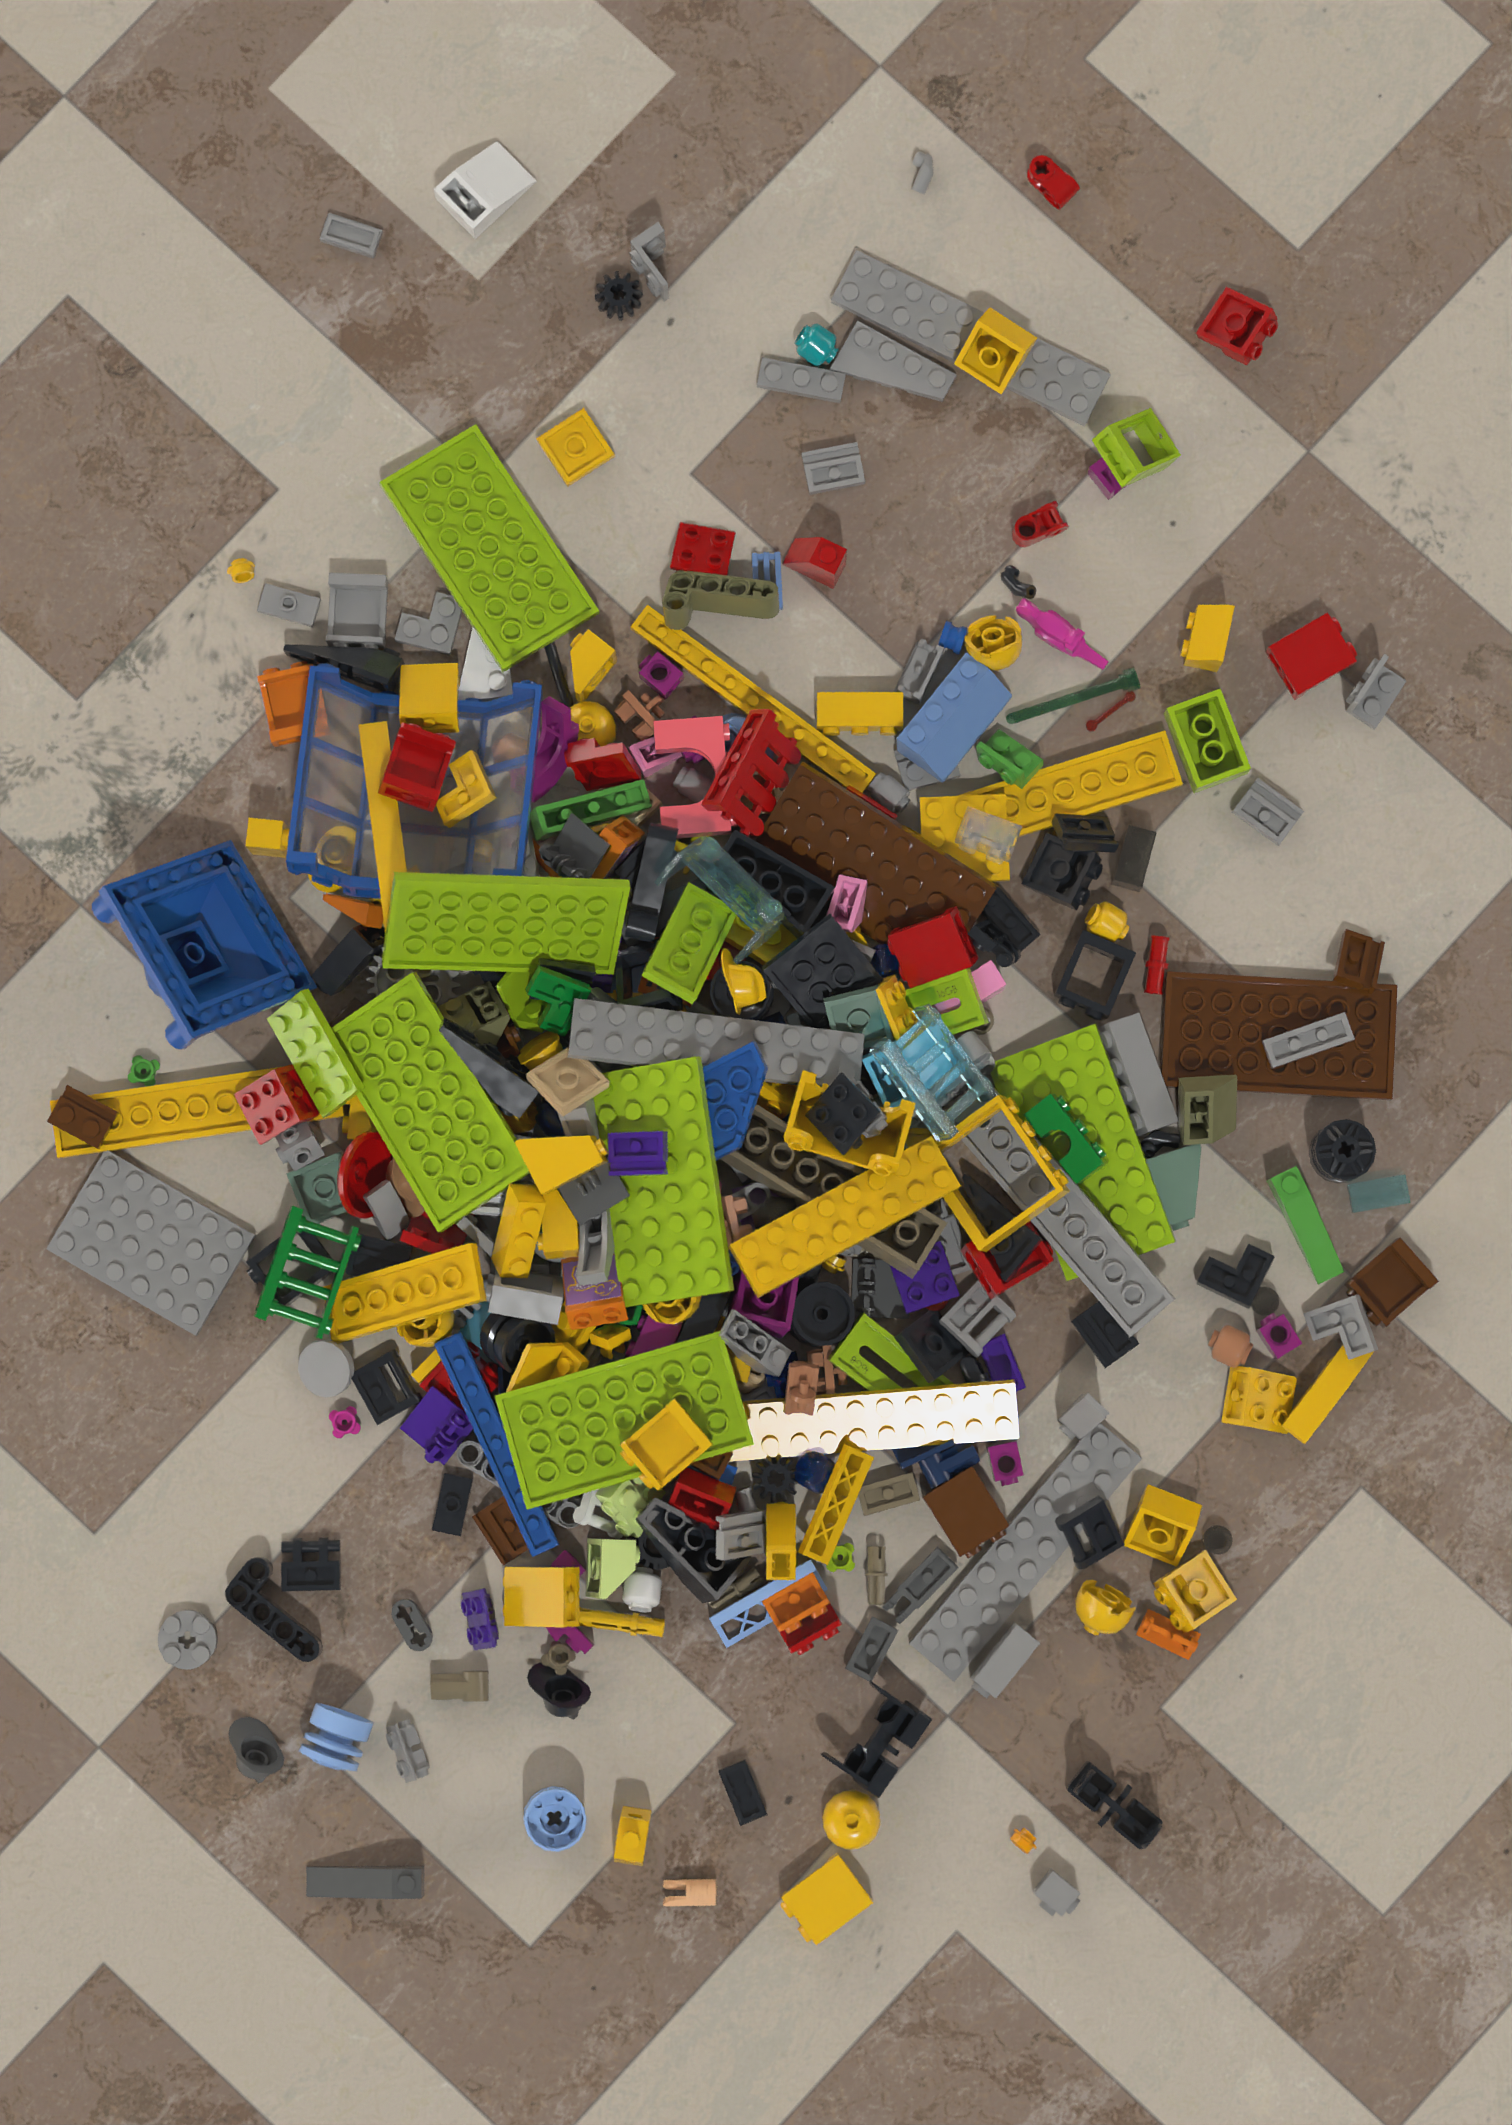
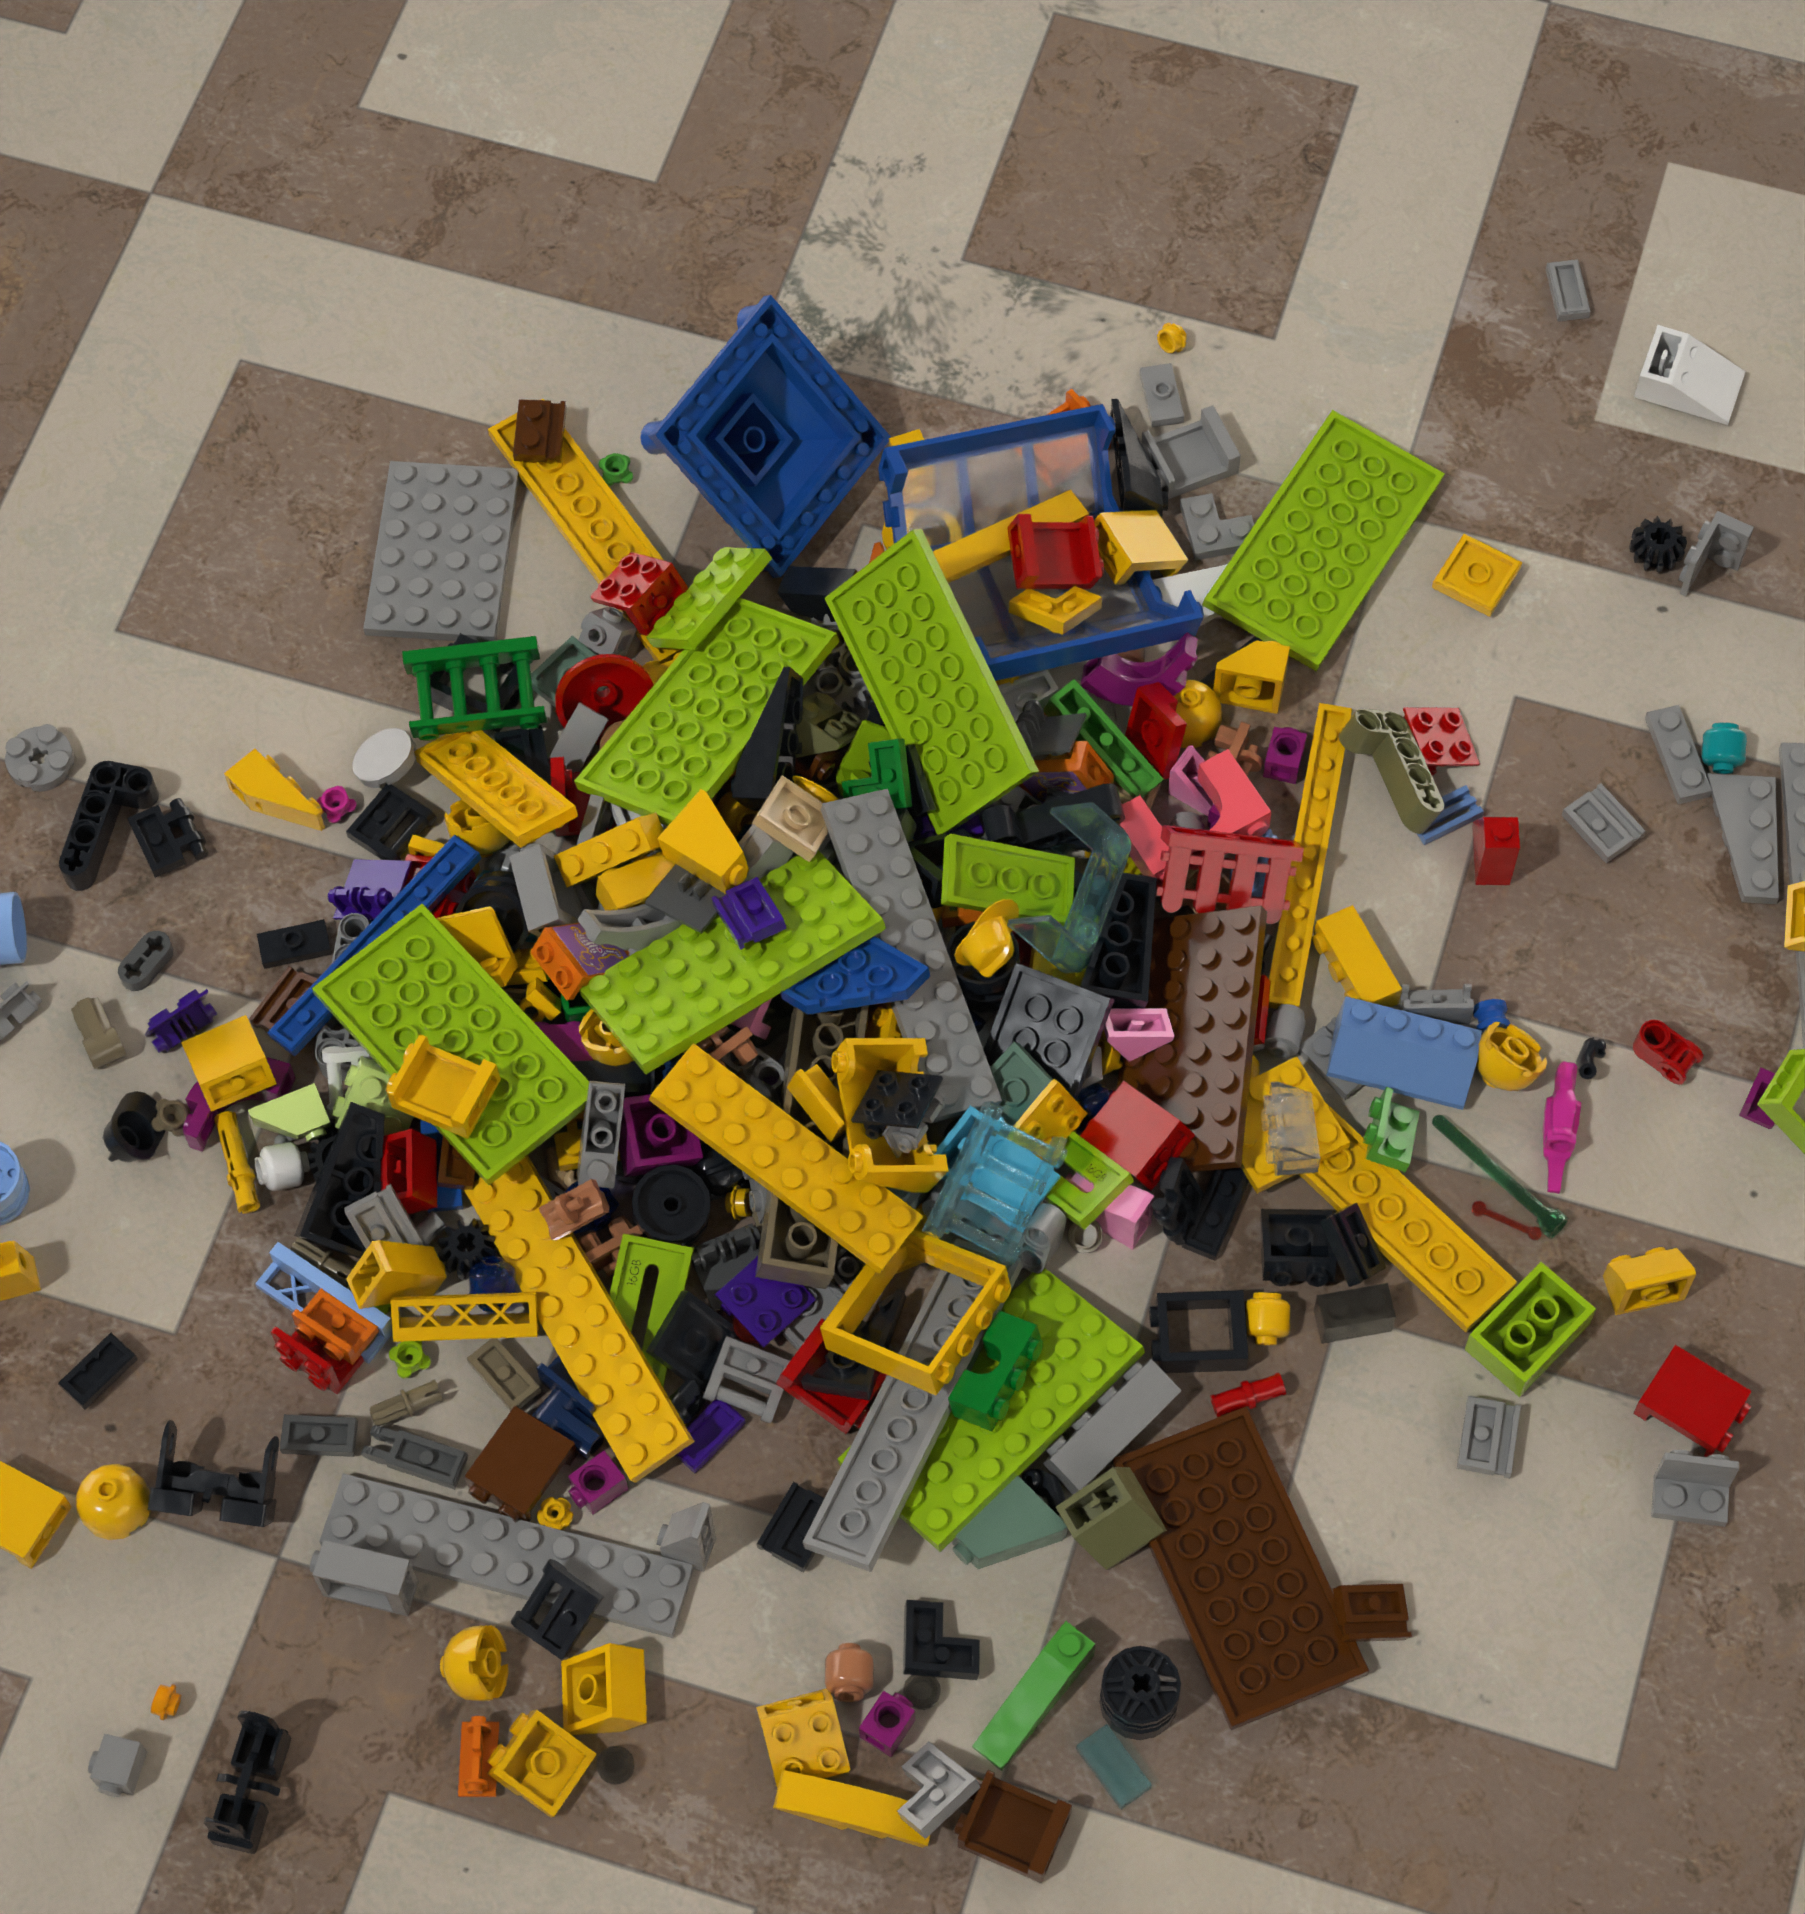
camera: 65 degrees right, 20 degrees down
(308, 1472) = (267, 791): none -> yellow slope
(811, 1169) = (819, 1100): none -> yellow panel
(1004, 1502) = (560, 1505): none -> yellow plate
(1308, 1040) = (1249, 1593): light grey plate -> none

